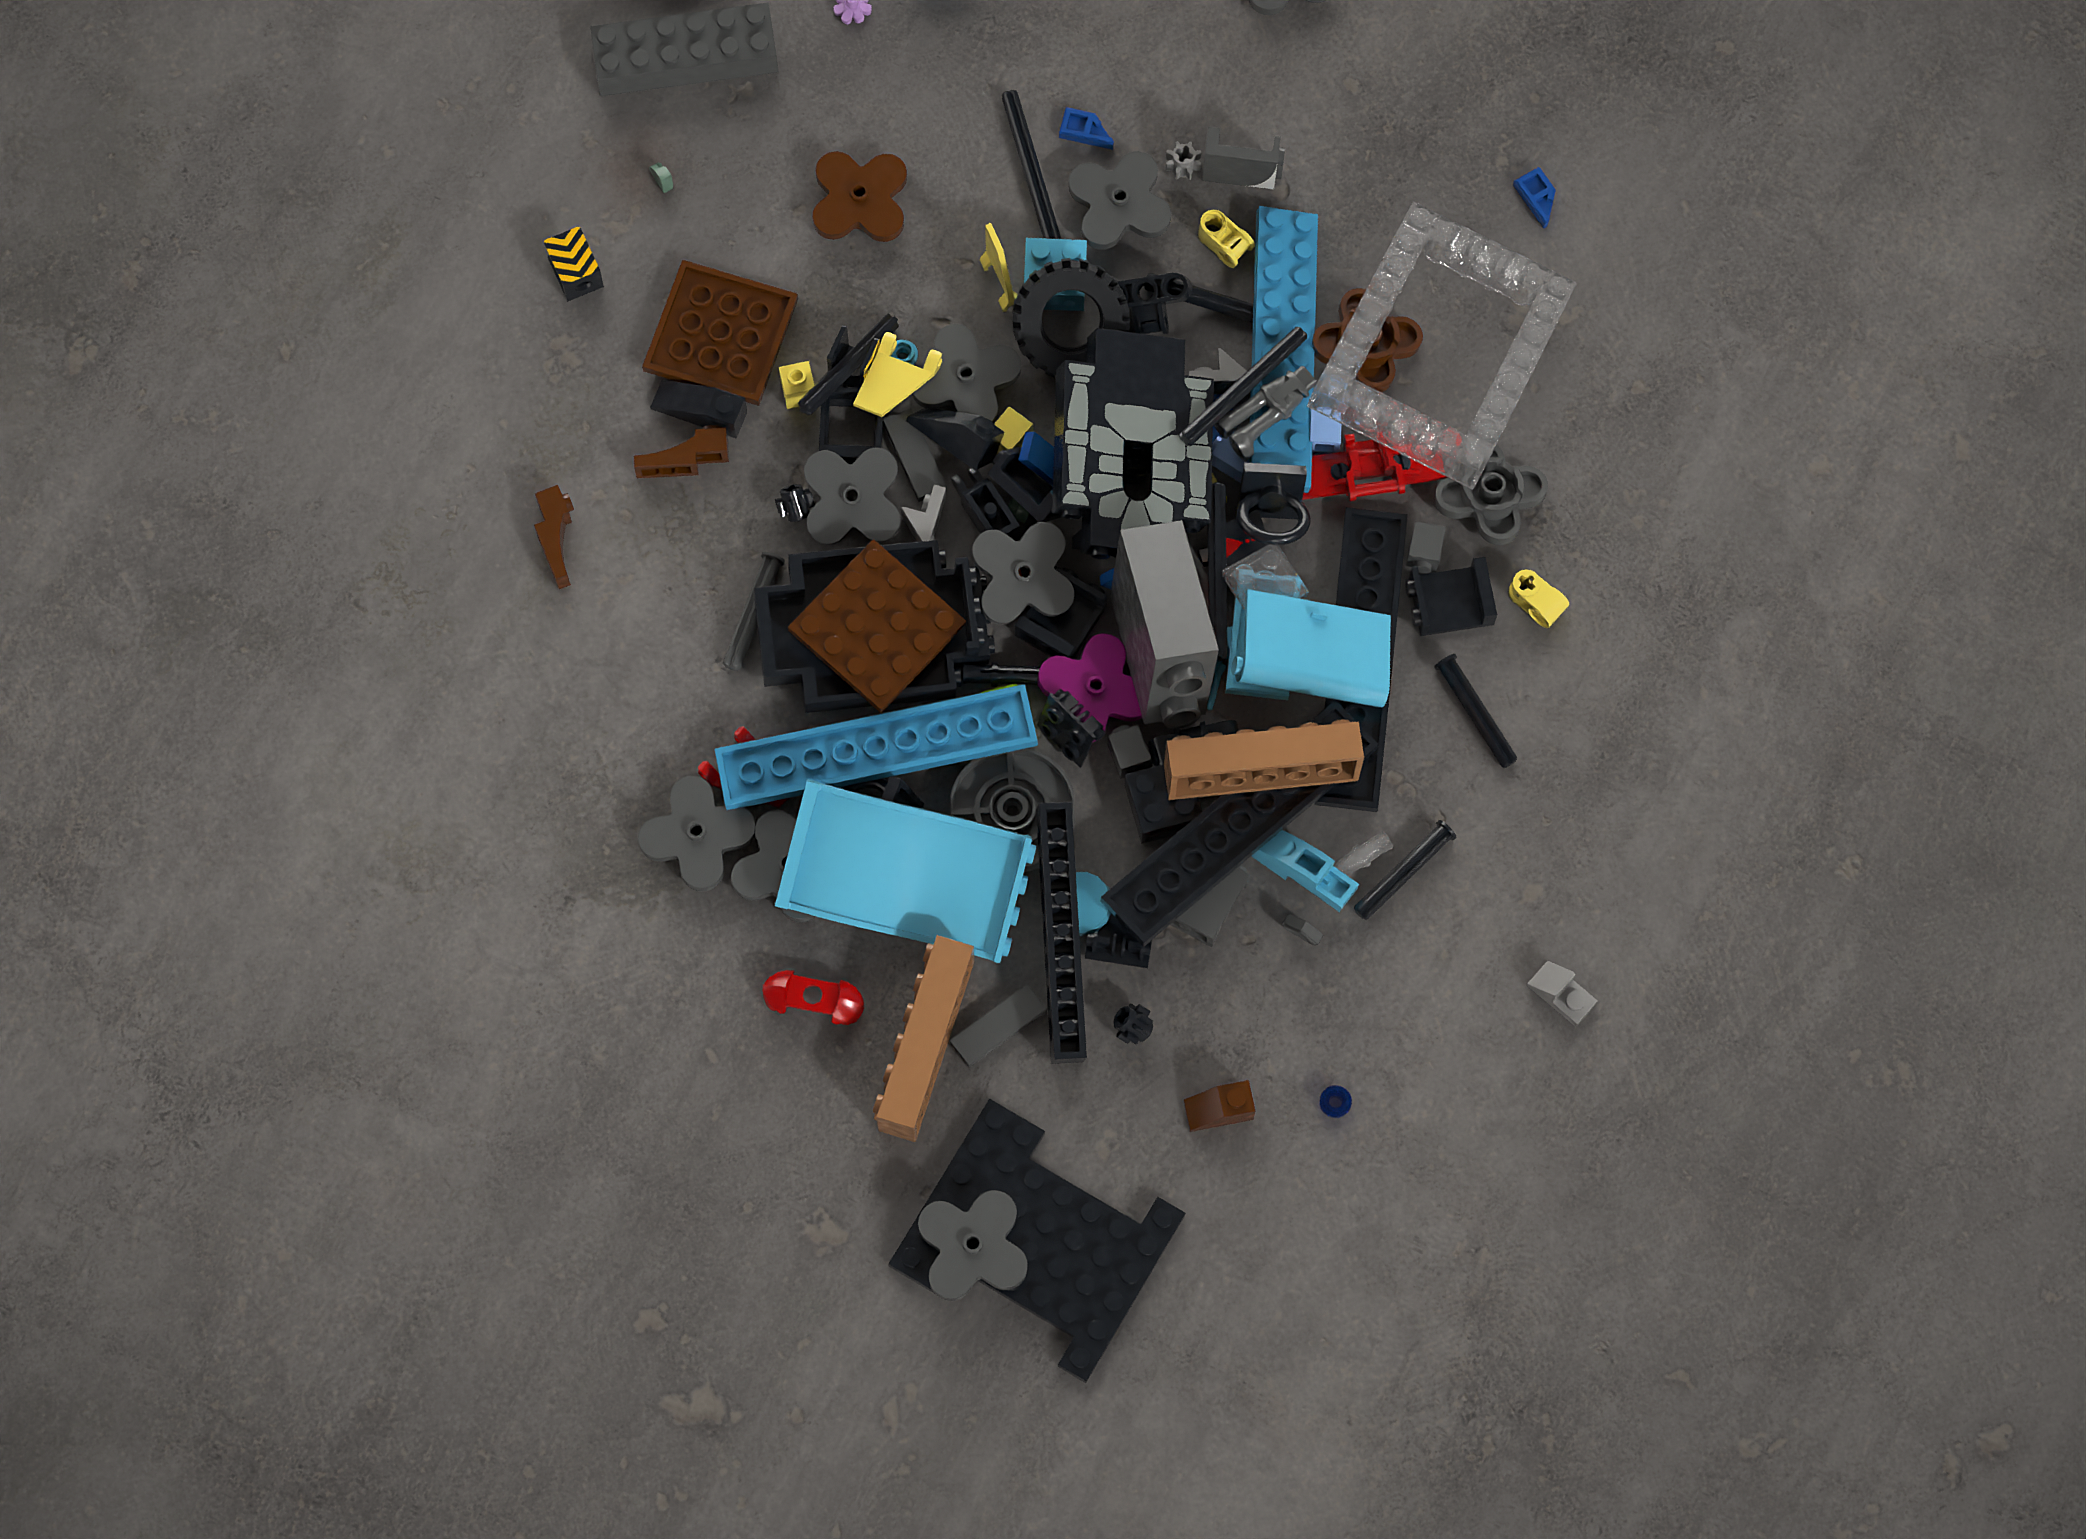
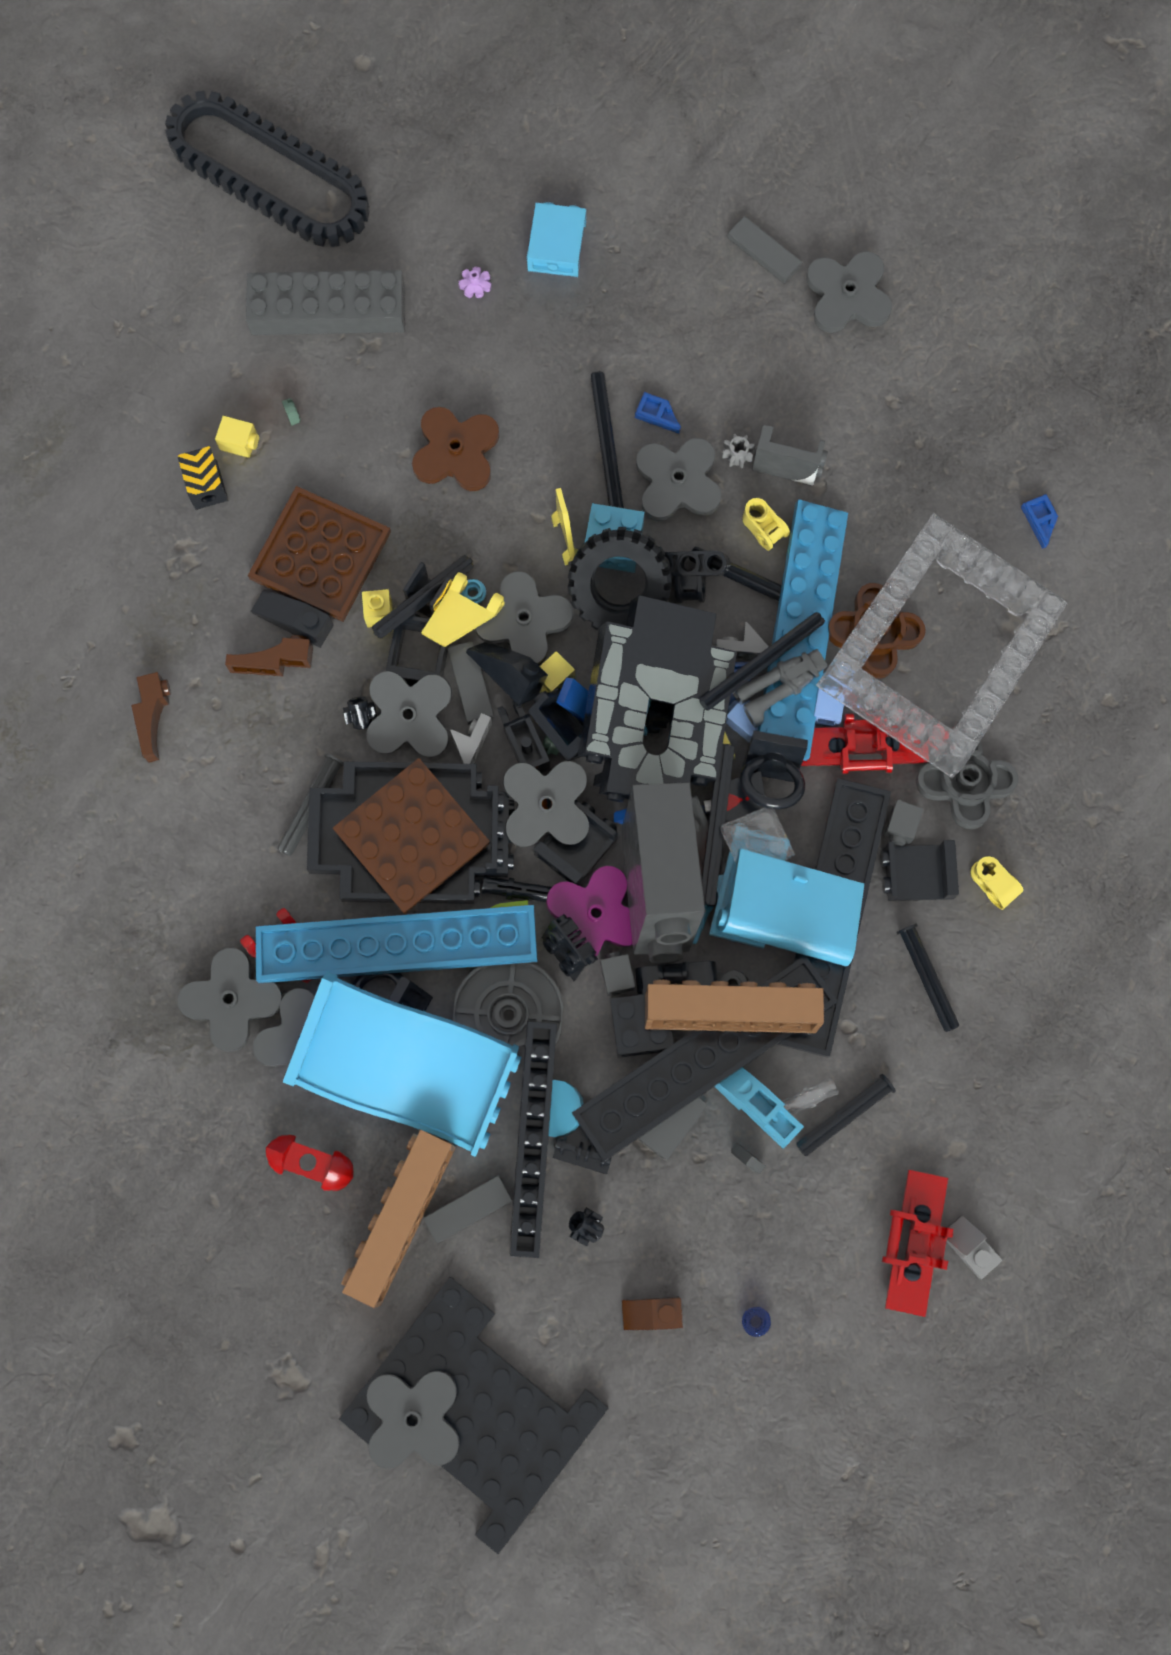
camera: 10 degrees right, 5 degrees up
(605, 213) = (237, 437): none -> light yellow brick
(1511, 994) = (926, 1243): none -> red piece

